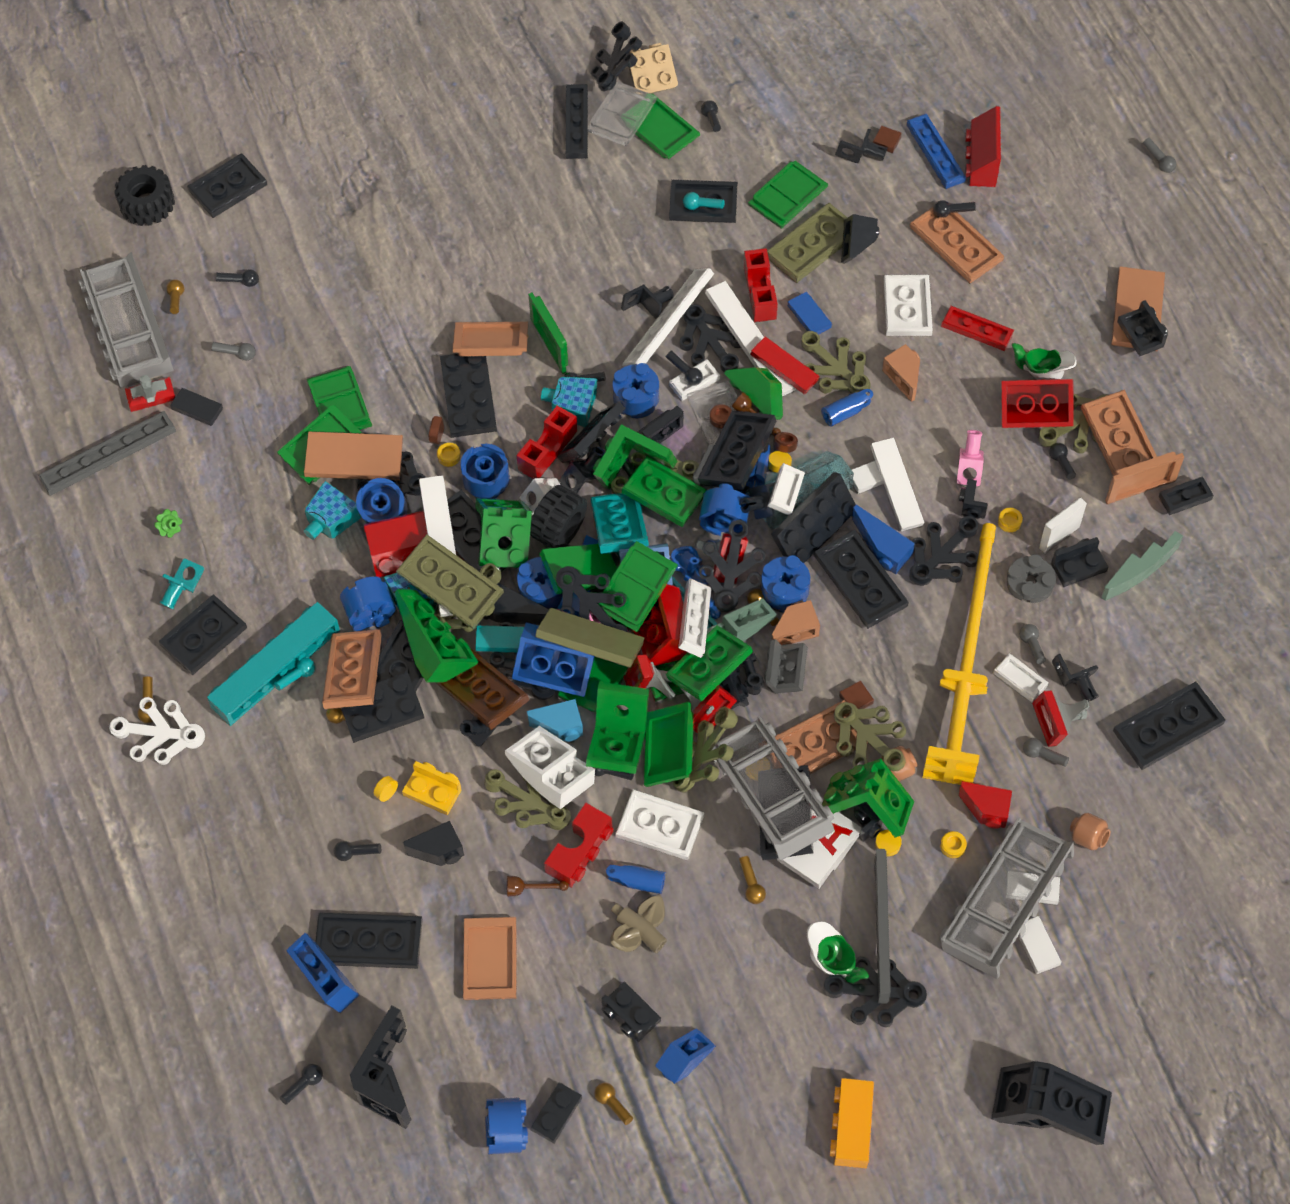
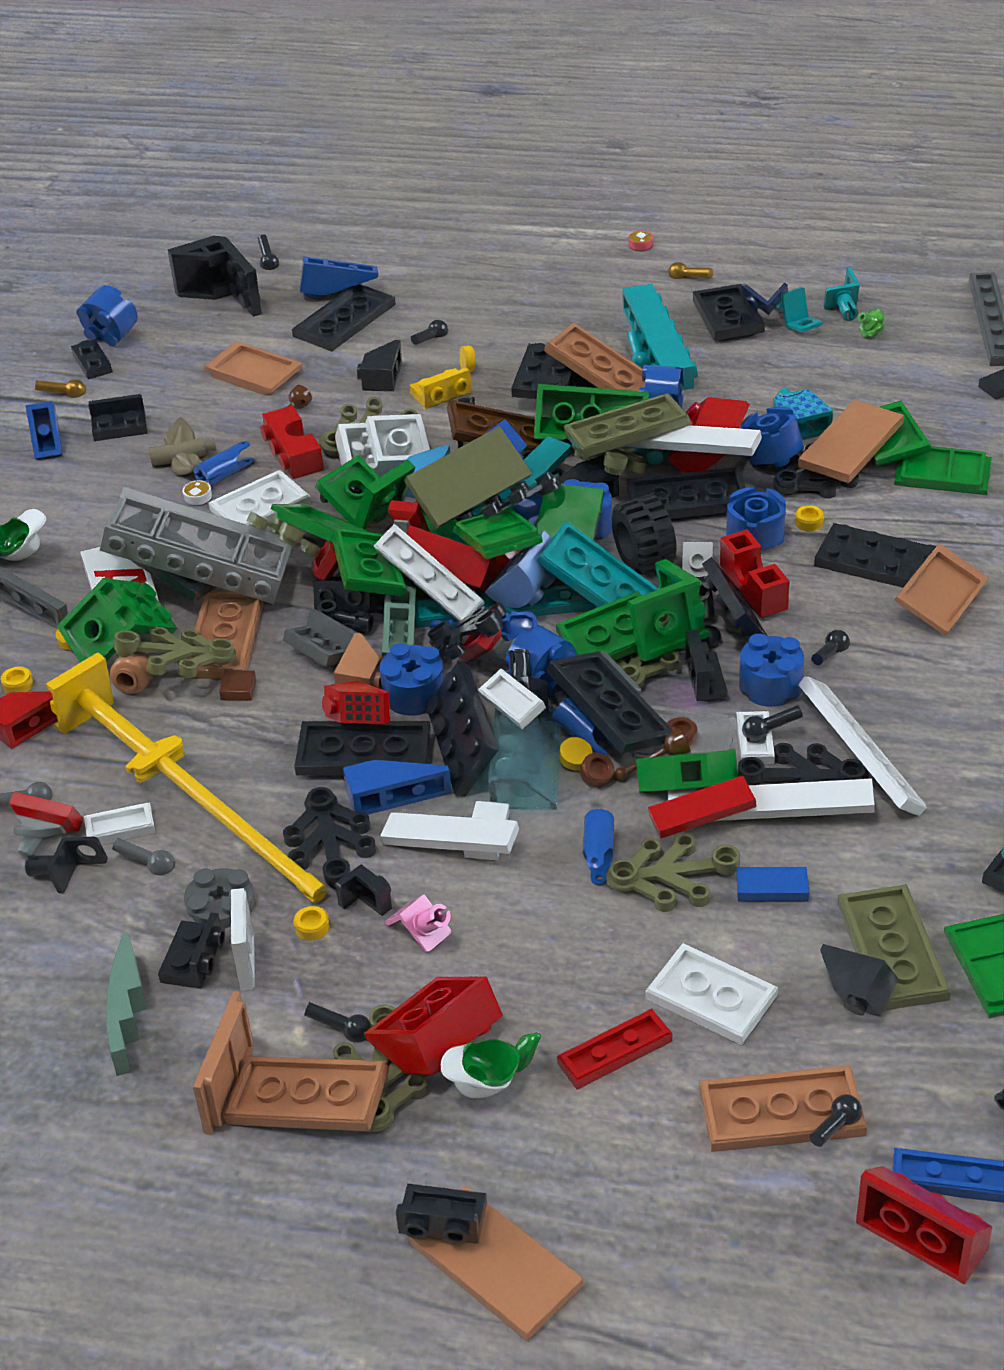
camera: 125 degrees right, 20 degrees down
(112, 767) = (640, 240): none -> tile
(138, 560) = (844, 296): none -> teal bracket
(160, 732) = (654, 269): white plant -> none
(190, 599) = (757, 301): none -> dark blue bracket
(436, 430) = (843, 512): copper tile -> none
(502, 519) = (671, 481): green bracket -> none
(548, 331) = (907, 623): green piece -> none
(574, 396) = (801, 618): torso -> none
(649, 300) = (903, 740): black bracket -> none
(678, 878) = (197, 492): none -> tile
(760, 290) = (820, 836): red arch -> none
(836, 594) = (356, 703): none -> red slope
(903, 370) = (601, 923): nougat slope -> none
(1186, 495) = (166, 1116): black plate -> none

